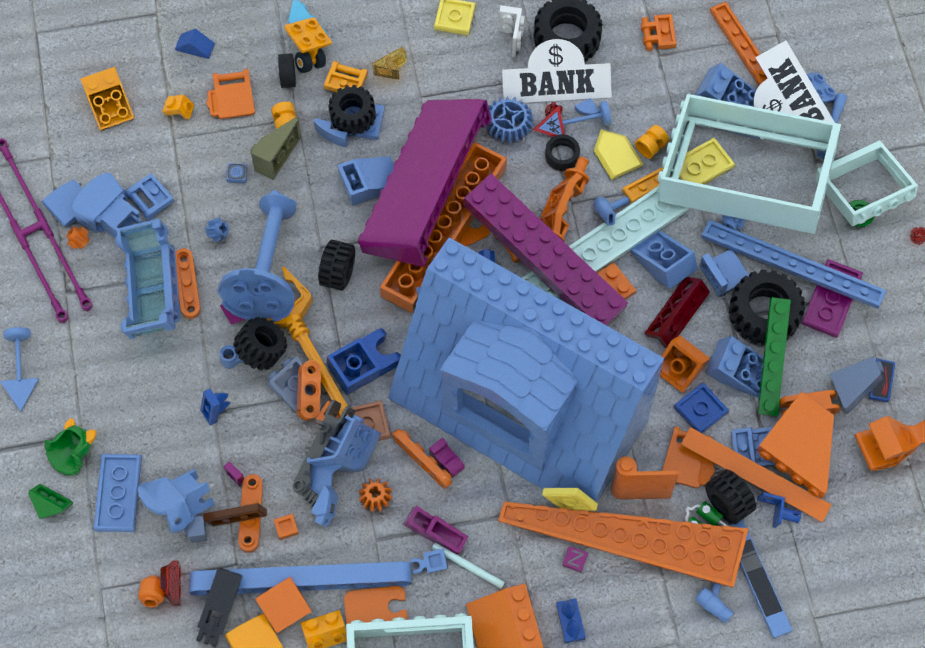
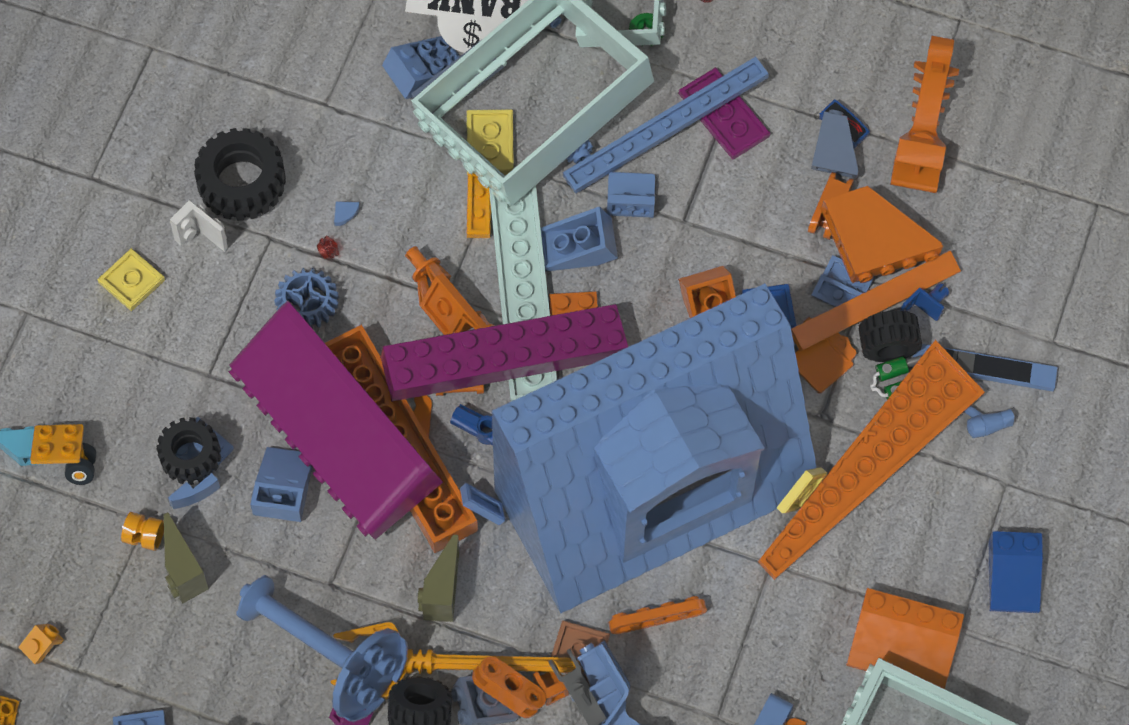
camera: 60 degrees left, 0 degrees up
(217, 229) = (237, 682): medium blue gear -> none
(231, 99) = (71, 578): orange piece -> none
(236, 173) = (174, 623): tile -> none
(286, 70) = (83, 494): black tyre -> none
(336, 265) = (375, 574): black tyre -> none
(337, 80) = (137, 444): light orange plate -> none
(358, 309) = (439, 587): none -> olive slope
(365, 357) = (509, 608): blue brick -> none
(375, 502) = (671, 695): orange gear -> none
(388, 64) = (149, 383): clear yellow slope -> none
(433, 561) = (782, 669): medium blue plate -> none
(435, 529) = (747, 647): magenta slope -> none
(446, 457) = (672, 590): magenta leg -> none
(470, 566) = (805, 637): light aqua bar -> none
(553, 123) = (343, 255): medium blue piece -> none
(557, 74) = (287, 217): white sticker -> none
(566, 140) = (378, 252): black tyre -> none
(570, 620) = (925, 570): blue tile -> none
(575, 559) = (861, 527): magenta tile -> none
(606, 209) = (483, 264): medium blue piece -> none
(616, 154) = (419, 217): light yellow tile -> none
(635, 484) = (823, 412): orange door -> none
(653, 140) = (433, 172): light orange wheel -> none
(664, 31) = (305, 81): orange plate -> none
(680, 312) = (653, 262): dark red fence -> none
(736, 366) = (748, 244): medium blue slope -> none
(739, 40) = (369, 16): orange tile -> none
(768, 285) = (705, 152): black tyre -> none
(773, 356) = (764, 203): green plate -> none

